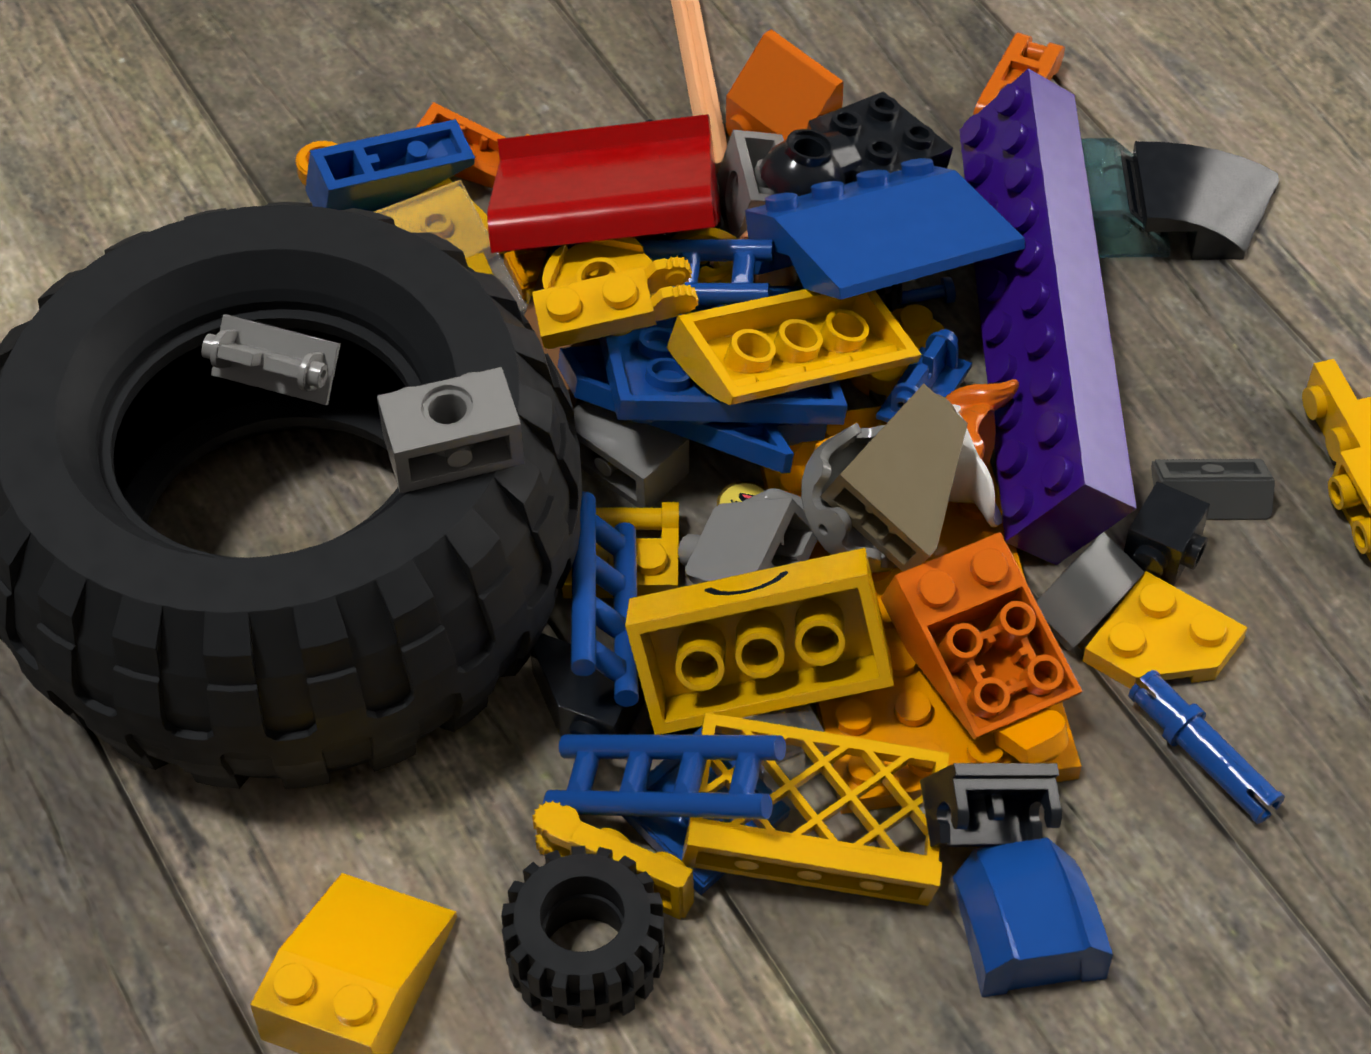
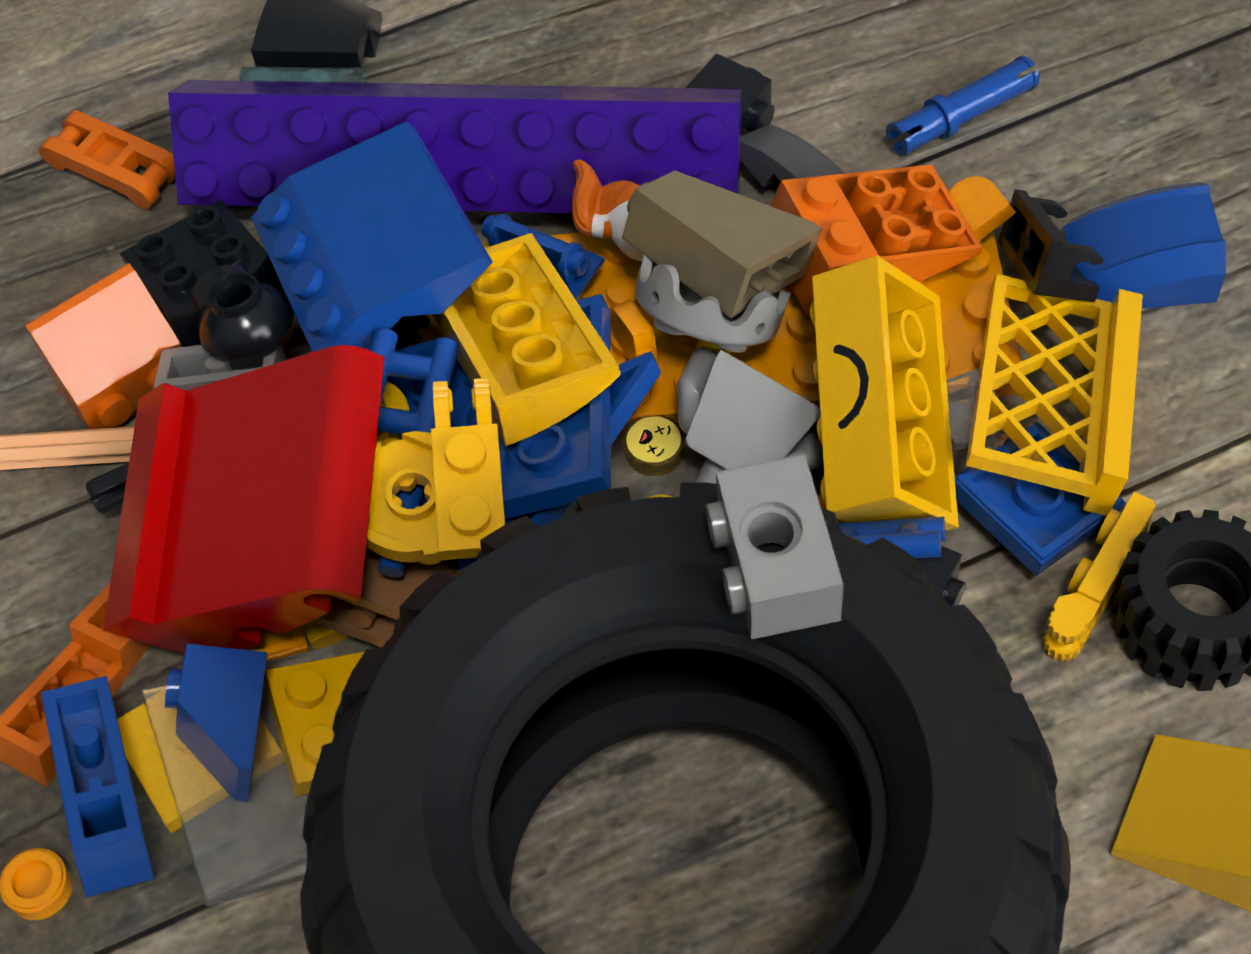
camera: 80 degrees left, 5 degrees up
(272, 358) = (644, 744): light grey hinge -> none
(446, 209) = (219, 710): none -> blue slope
(685, 800) = (1077, 484): blue bar -> none
(1163, 632) = (840, 118): yellow plate -> none
(1229, 485) = (665, 55): dark grey slope -> none

